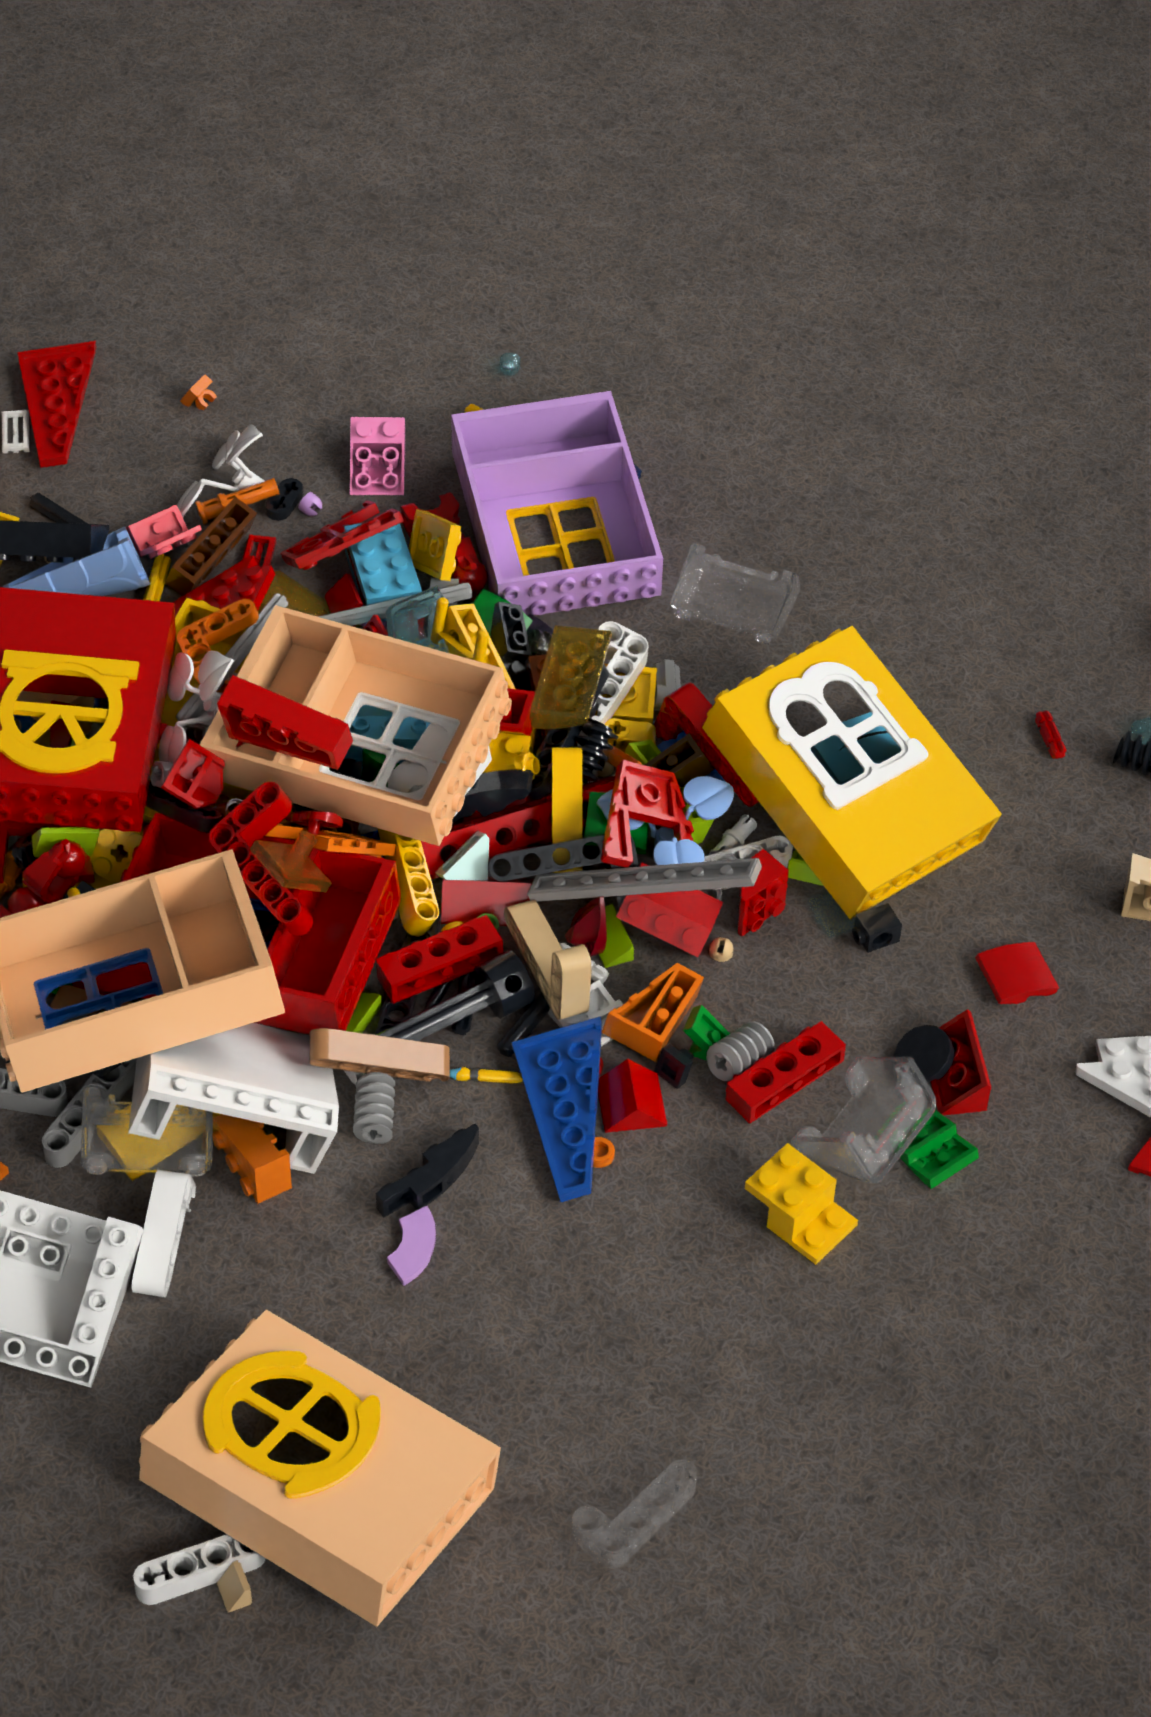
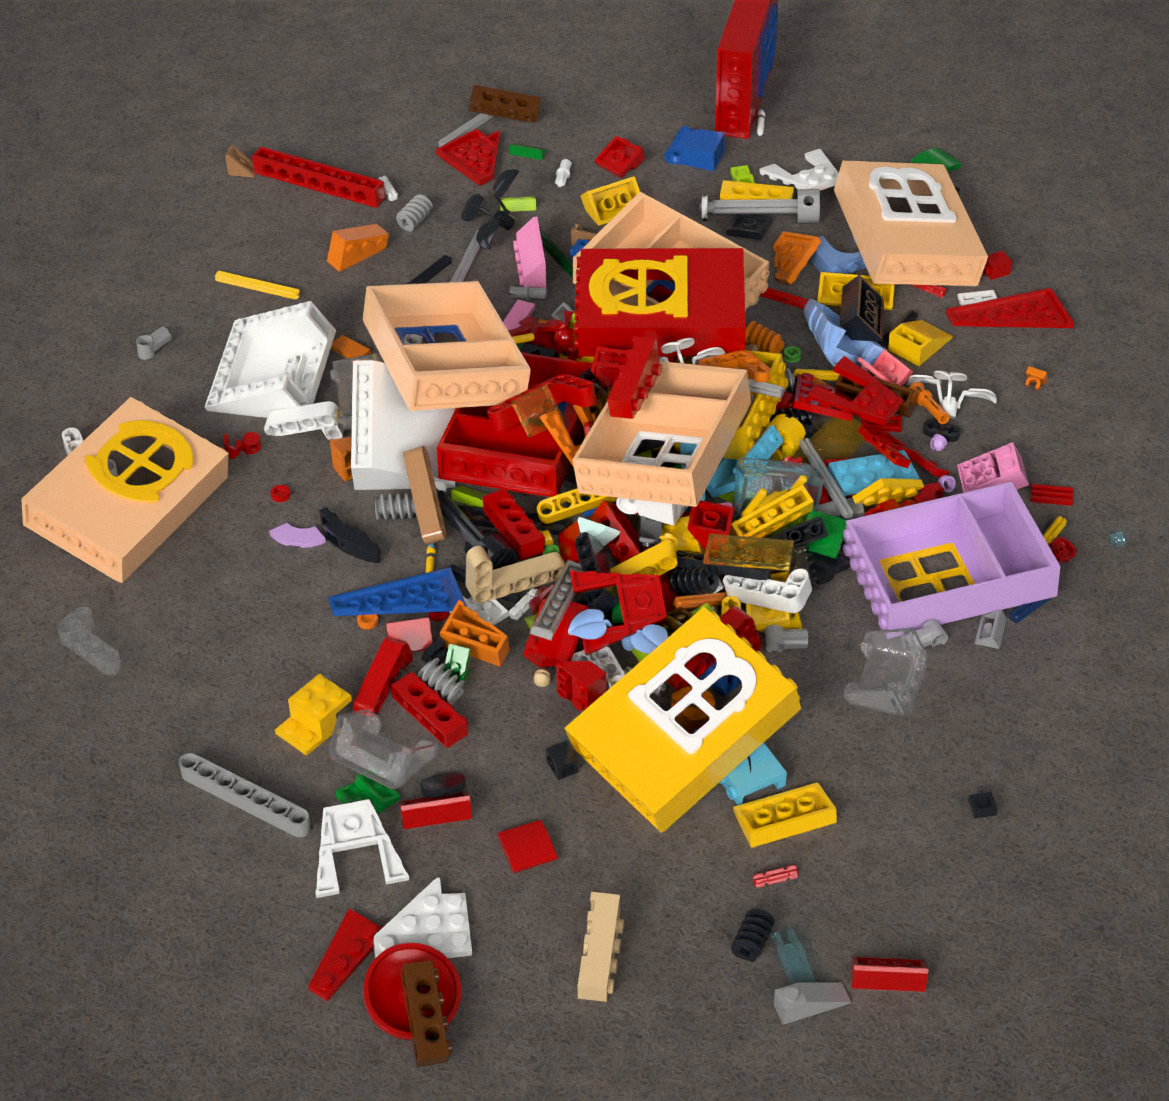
camera: 90 degrees right, 5 degrees down
(103, 495) = (917, 341): none -> yellow slope
(196, 1317) = (249, 439): none -> red leg
(250, 536) = (873, 403): none -> red wing
(313, 1271) = (280, 493): none -> red tile
(387, 503) = (949, 481): none -> lavender hinge
(431, 412) = (1052, 494): none -> red tile
(662, 500) = (991, 635): none -> light grey slope
(672, 557) = (932, 633): none -> light grey piece
(726, 1118) = (388, 661): none -> red beam
(936, 1302) = (245, 795): none -> light grey beam
(947, 535) = (983, 805): none -> black tile
(957, 713) = (785, 814): none -> yellow slope
(1007, 1164) = (349, 828): none -> white wing

